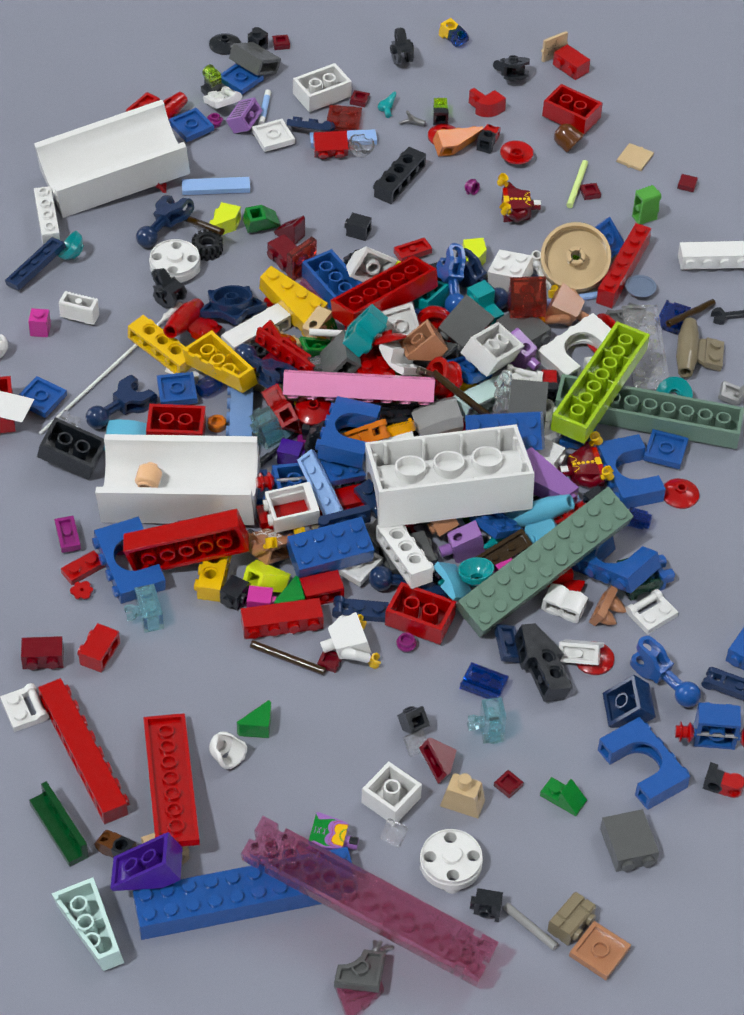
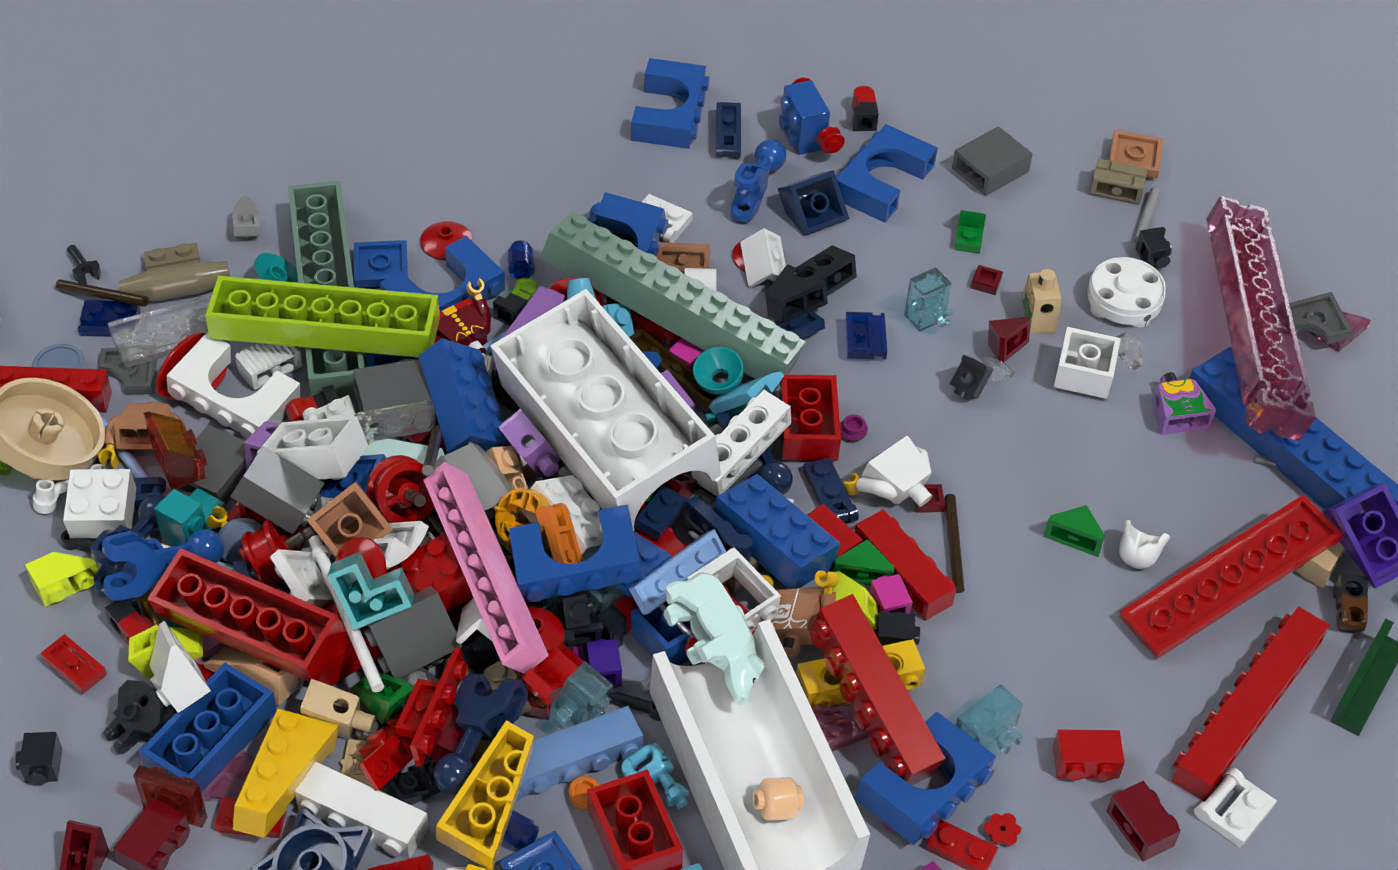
camera: 115 degrees left, 0 degrees up
(261, 475) = (719, 631): none -> light aqua animal

